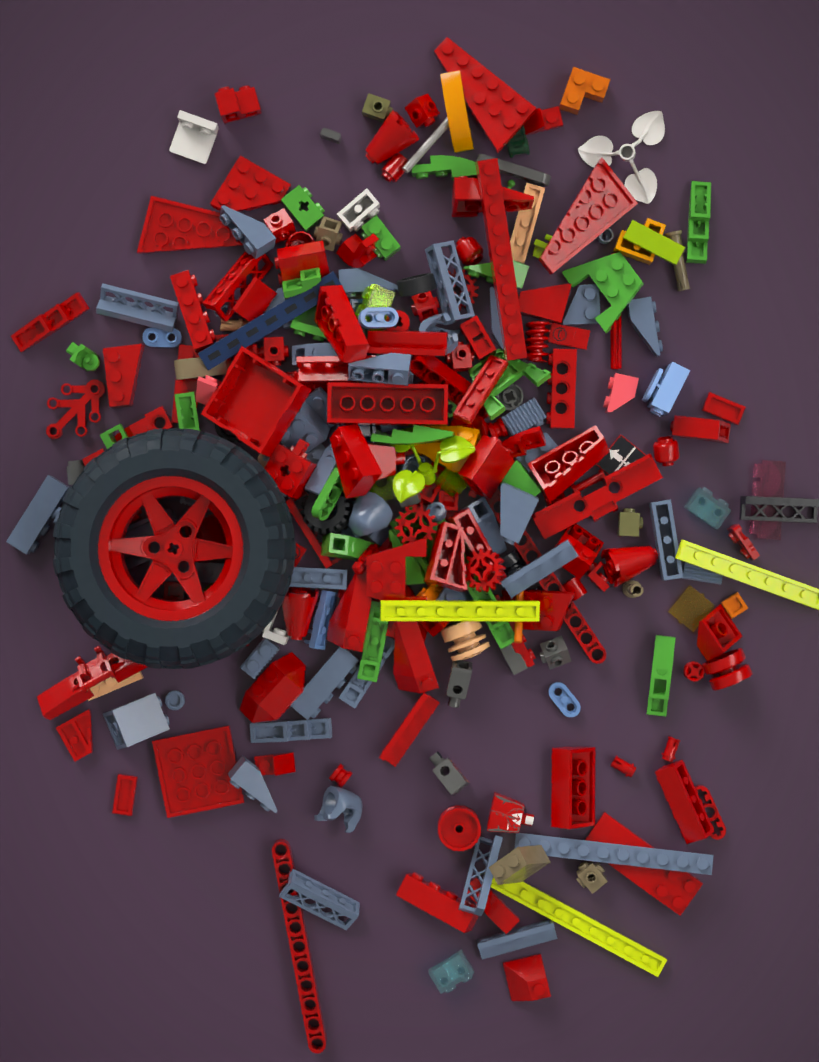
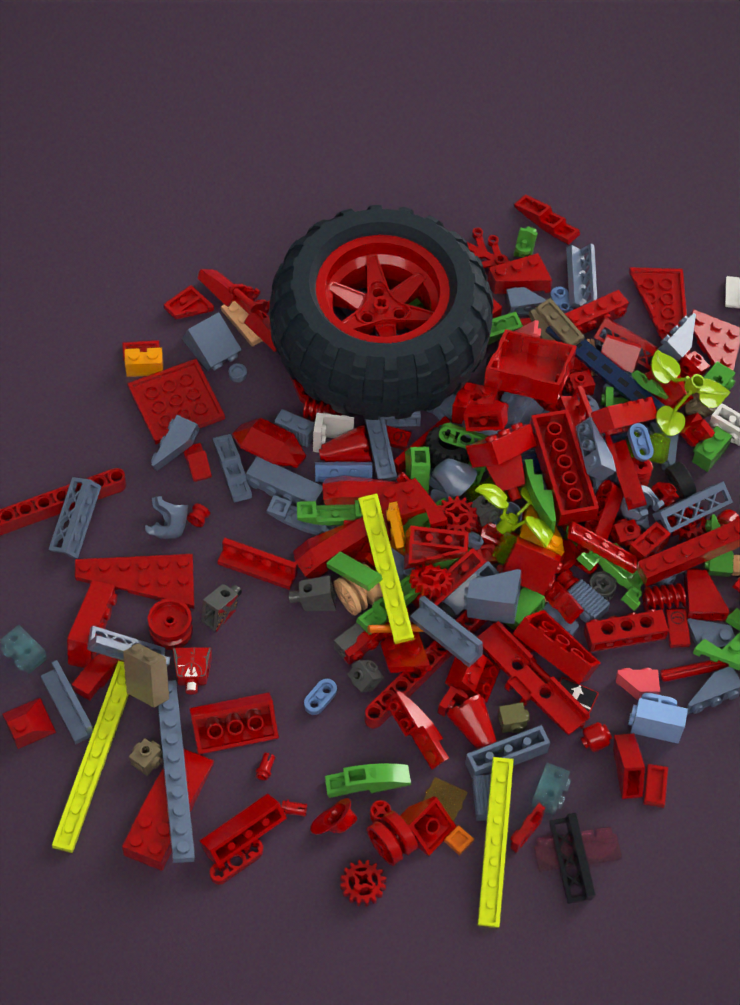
camera: 75 degrees right, 30 degrees down
(144, 804) = (143, 363): none -> light orange brick
(154, 380) = (522, 300): none -> sand blue slope
(207, 354) = (559, 322): none -> dark tan tile
(320, 470) = (485, 417): none -> red brick
(328, 224) = (710, 392): none -> lime plant
(396, 833) = (143, 576): none -> red wing
(418, 590) = (397, 530): none -> light orange plate
(456, 642) = (354, 571): none -> bright green tile
(576, 586) = (433, 682): red beam -> none
(619, 618) = (419, 726): none -> red slope
(628, 589) = (449, 729): dark tan pin -> none
(691, 716) = (335, 819): none -> red piece
(750, 709) = (359, 891): none -> red gear

